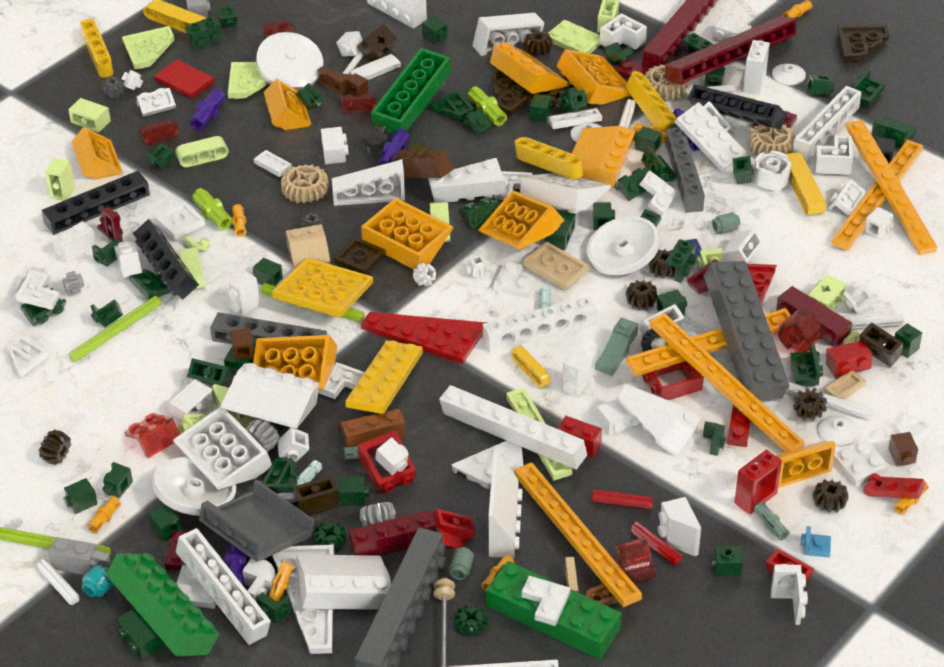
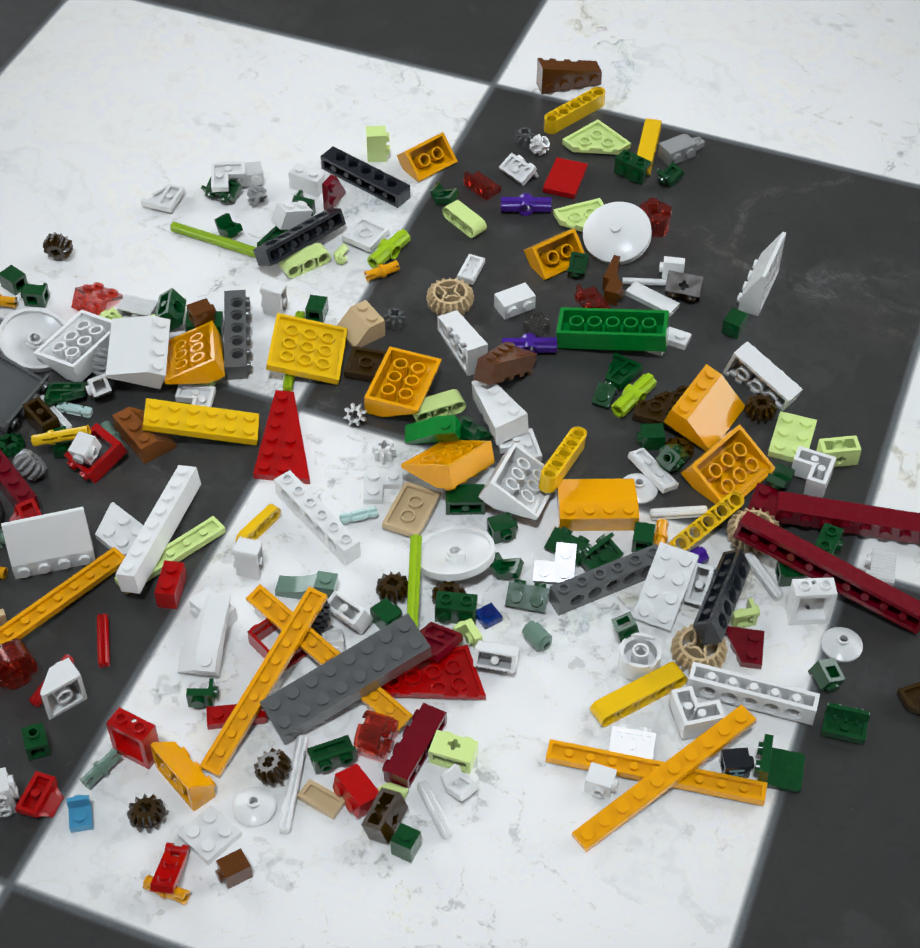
camera: 70 degrees right, 5 degrees up
(44, 39) = (566, 75): none -> reddish brown wedge
(89, 115) = (479, 136): yellowish green brick -> none
(359, 483) = (53, 437): none -> yellow pin
(475, 226) = (433, 429): none -> green slope
(655, 277) = (414, 577): none -> lime axle
(681, 219) = (527, 596): none -> bracket

